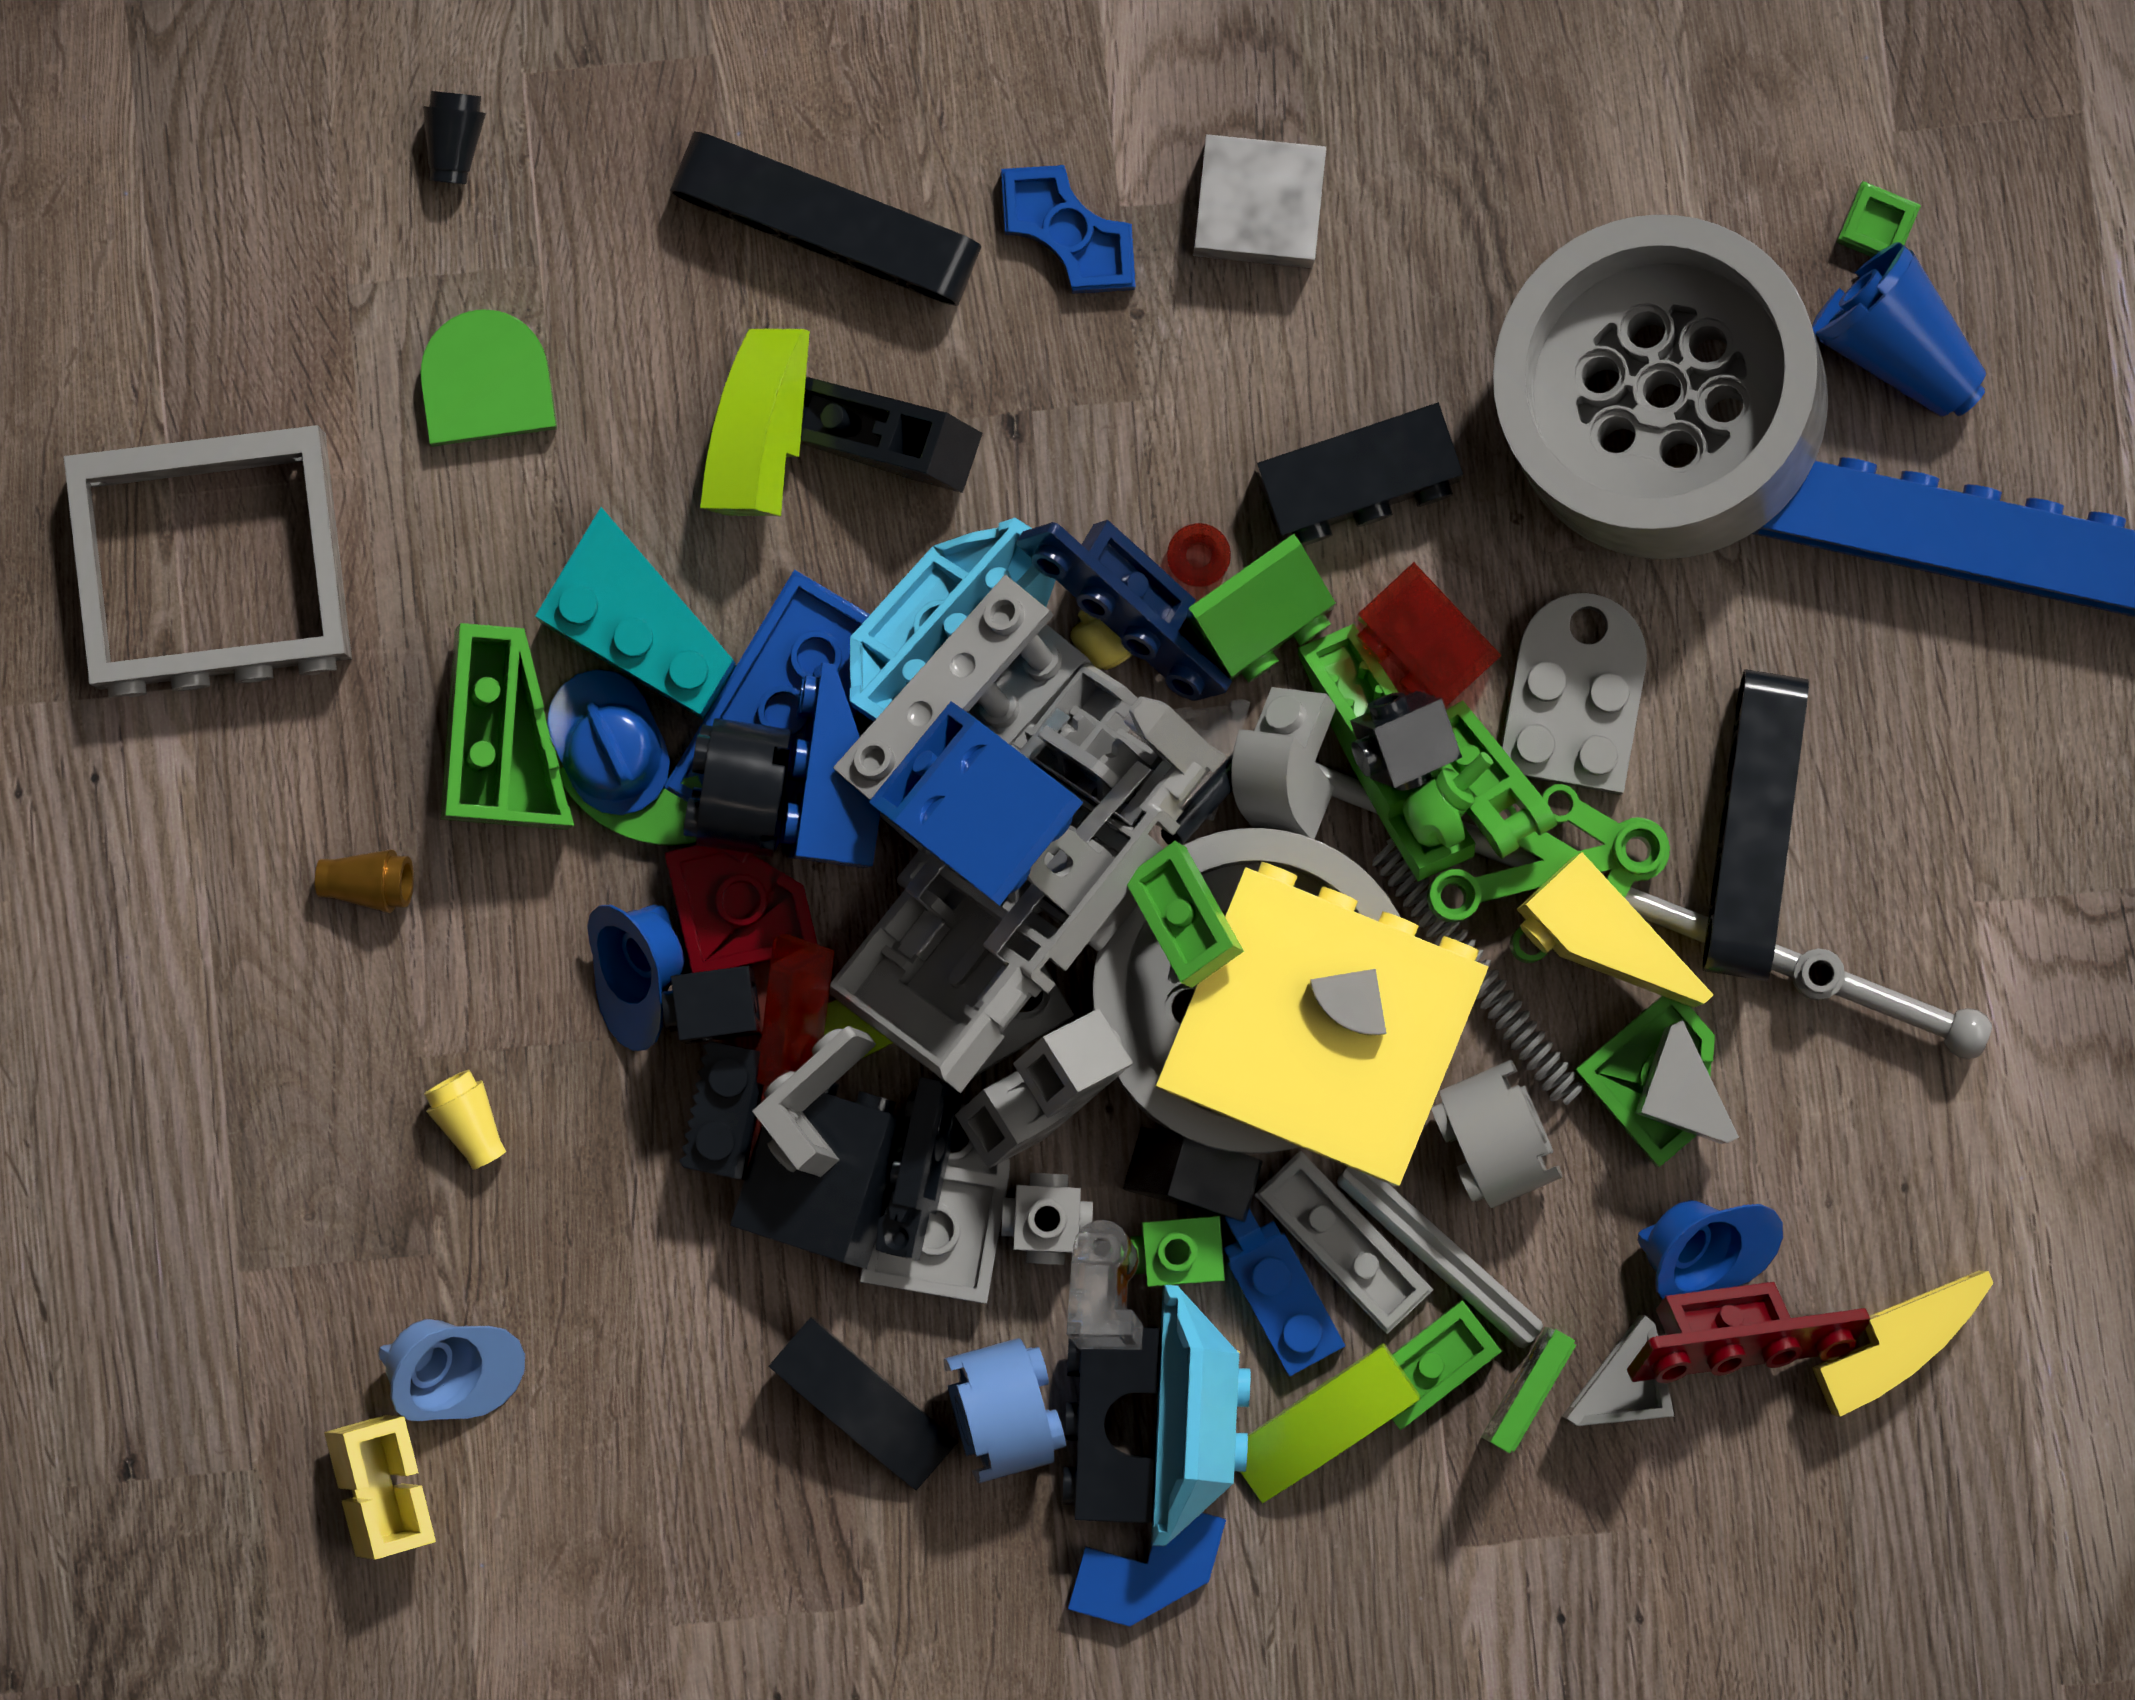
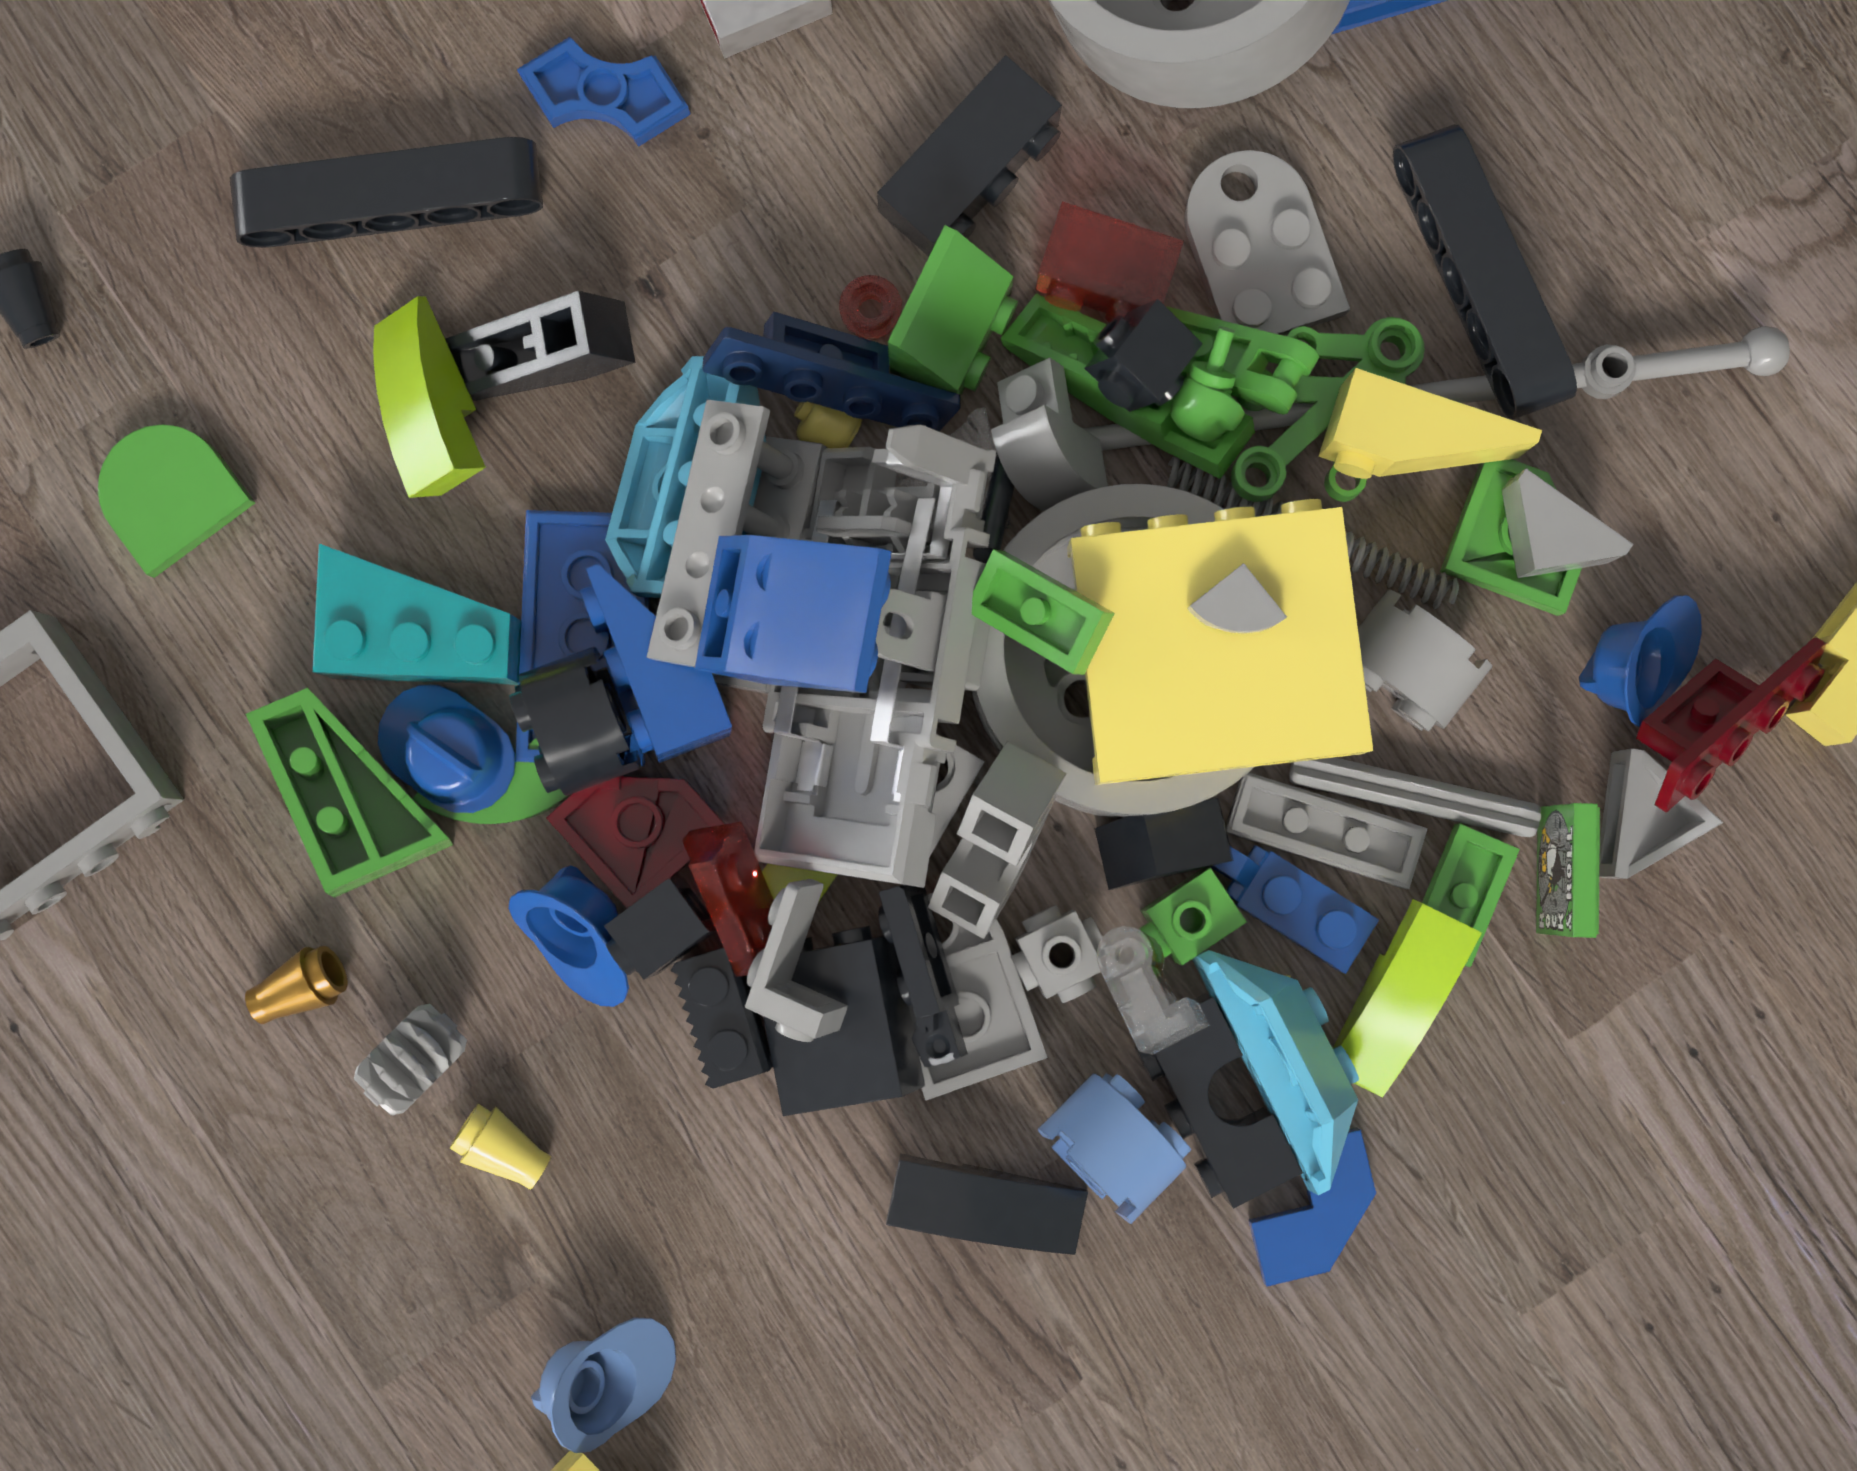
camera: 25 degrees left, 0 degrees up
(434, 998) = (410, 1059): none -> light grey gear

